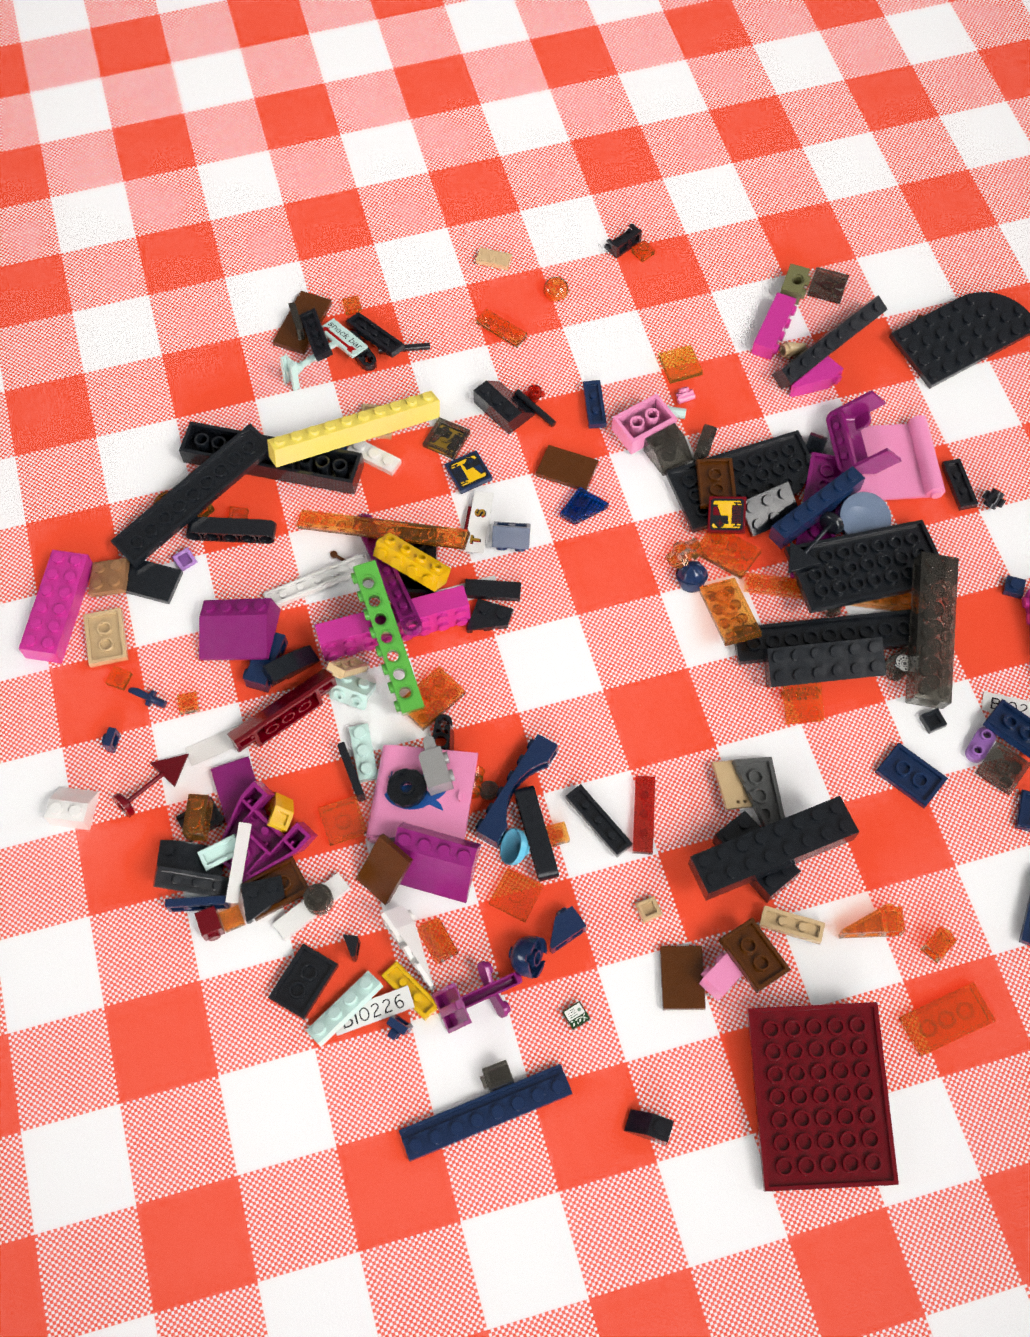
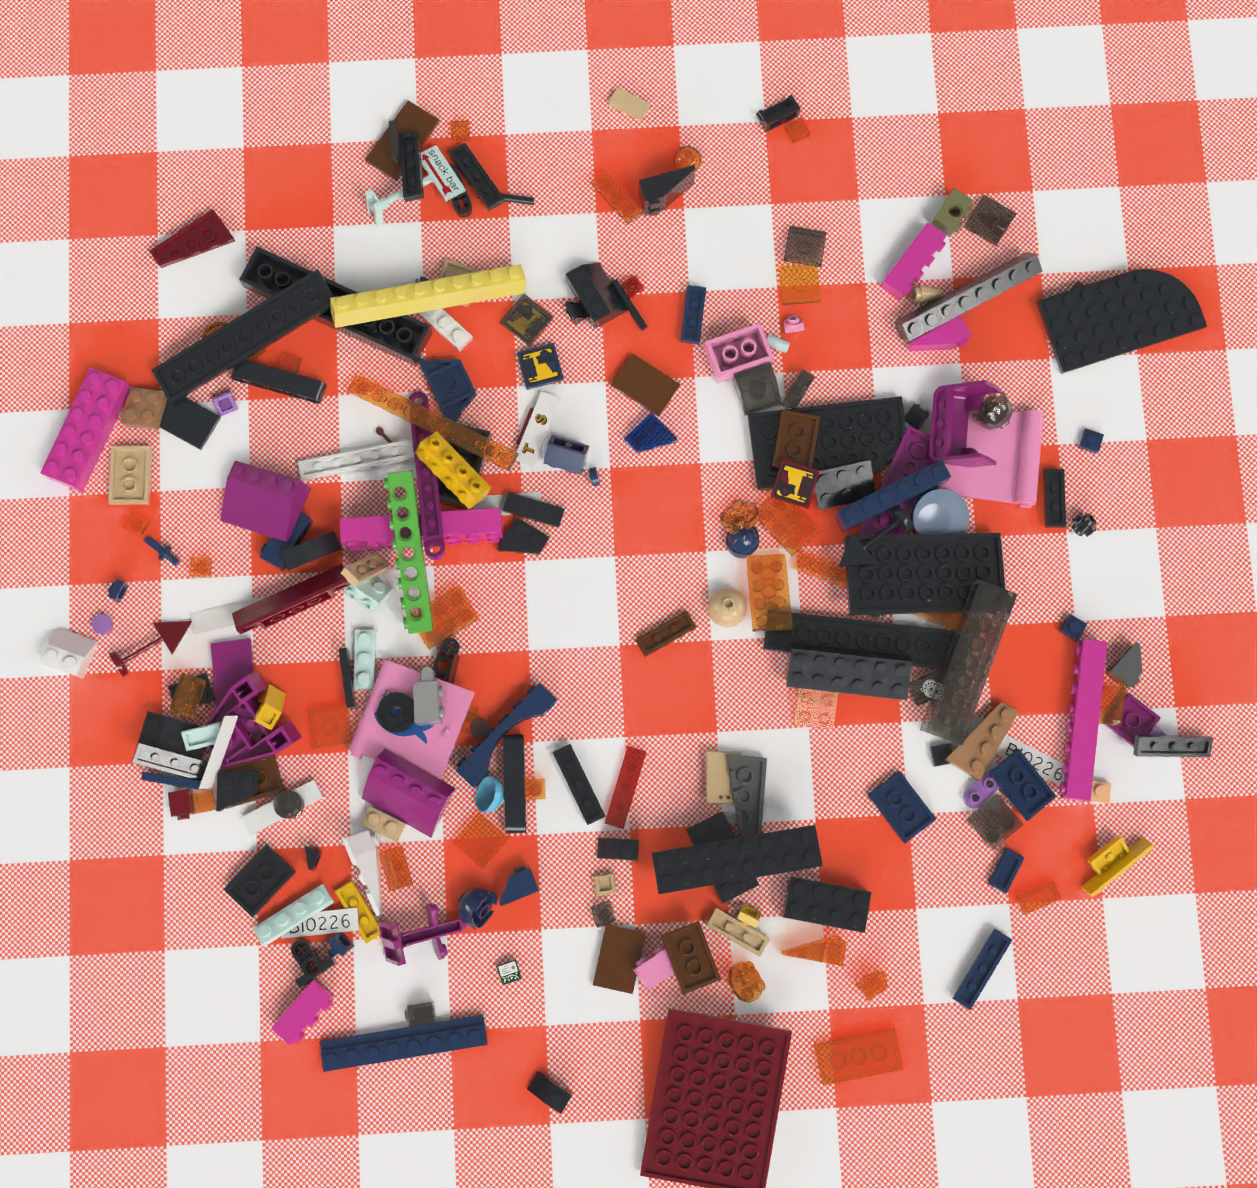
camera: 10 degrees right, 15 degrees up
(101, 774) = (102, 624): none -> medium lavender tile
(132, 431) = (196, 238): none -> dark red wing
(368, 1046) = (304, 960): none -> black tile
(375, 1103) = (303, 1012): none -> dark pink brick
(384, 869) = (357, 791): reddish brown tile -> none
(388, 500) = (449, 385): none -> dark blue wing
(416, 900) = (383, 824): none -> tan plate
(487, 423) = (575, 312): none -> black slope
(541, 549) = (594, 476): none -> dark blue tile
(542, 310) = (662, 190): none -> black slope
(643, 670) = (665, 634): none -> reddish brown tile
(653, 871) = (617, 849): none -> black slope
(655, 936) = (603, 913): none -> clear smoke plate
(676, 333) = (805, 246): none -> clear smoke tile
(694, 634) = (727, 607): none -> tan cylinder
(798, 906) = (749, 915): none -> yellow plate
(814, 969) = (745, 981): none -> clear orange plate
(870, 878) = (826, 904): none -> black brick
(884, 424) = (994, 412): none -> clear smoke cylinder
(967, 700) = (983, 741): none -> medium nougat wing
(974, 434) = (1091, 441): none -> dark blue plate

